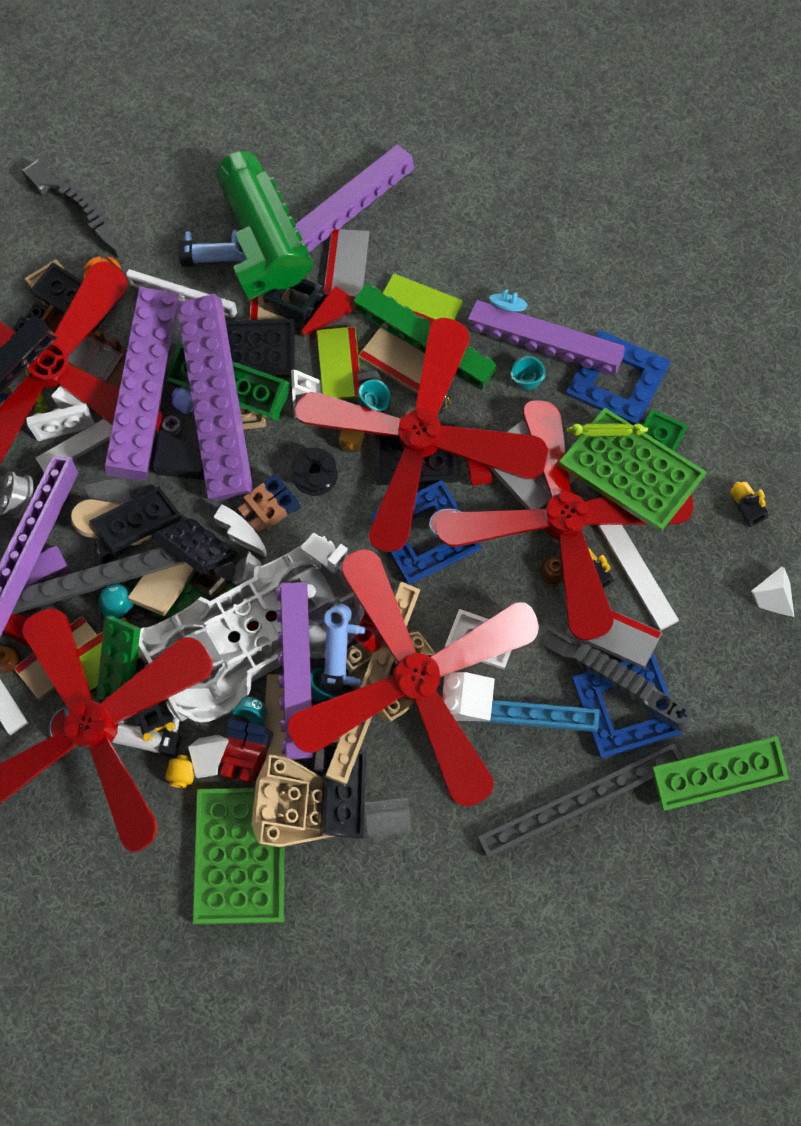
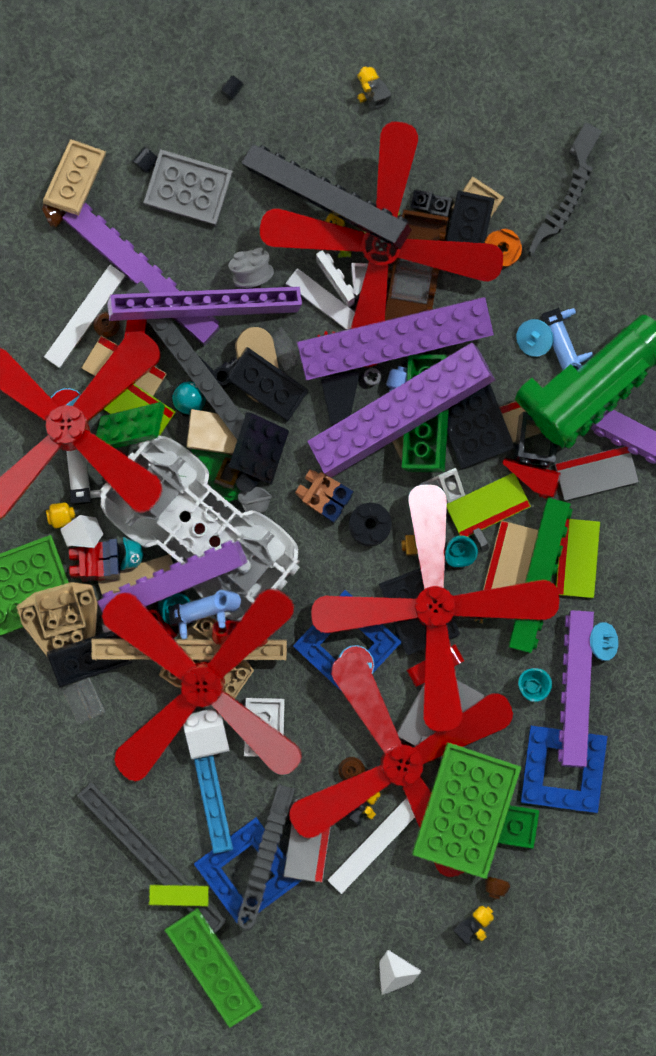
camera: 65 degrees right, 15 degrees up
(142, 280) = (507, 331): white tile -> none
(154, 720) = (91, 478): black piece -> none
(198, 272) = (534, 337): none -> medium azure piece
(239, 530) = (291, 479): white slope -> none
(324, 552) = (281, 567): white bracket -> none
(607, 429) = (495, 776): lime wheel -> none
(631, 783) = (178, 895): none -> lime tile
(716, 471) = (496, 887): none -> reddish brown cone

